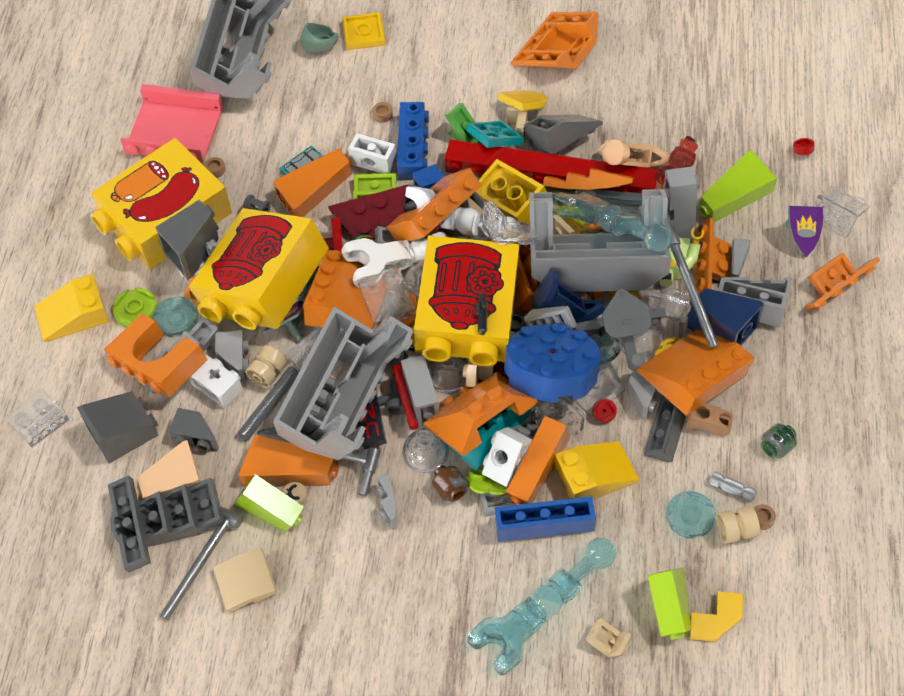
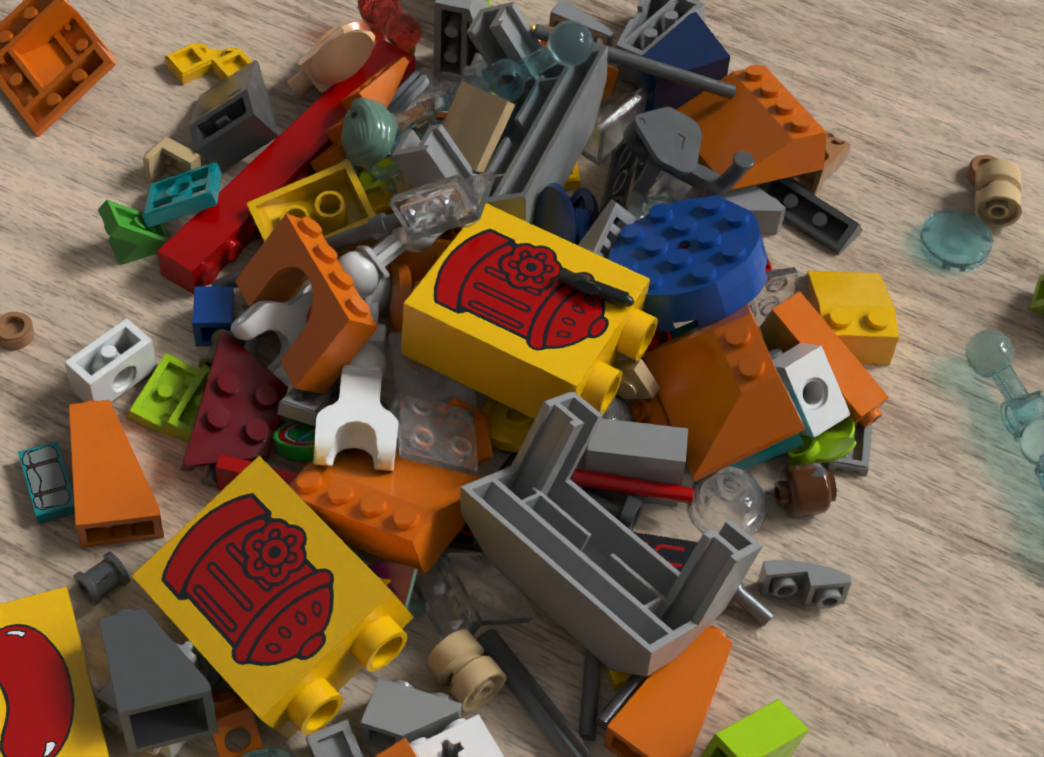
camera: 75 degrees left, 5 degrees down
(296, 491) = (726, 711): tan tile -> none
(412, 139) = (102, 301): blue brick -> none
(523, 99) = (136, 137): yellow tile -> none
(545, 519) = (917, 394): blue brick -> none
(564, 182) = (368, 132): none -> sand green hair
(580, 223) = (477, 123): none -> tan slope
(603, 103) = (200, 60): none -> yellow tile
(732, 486) = (930, 181): light grey axle -> none
(779, 440) = (883, 106): clear green head -> none

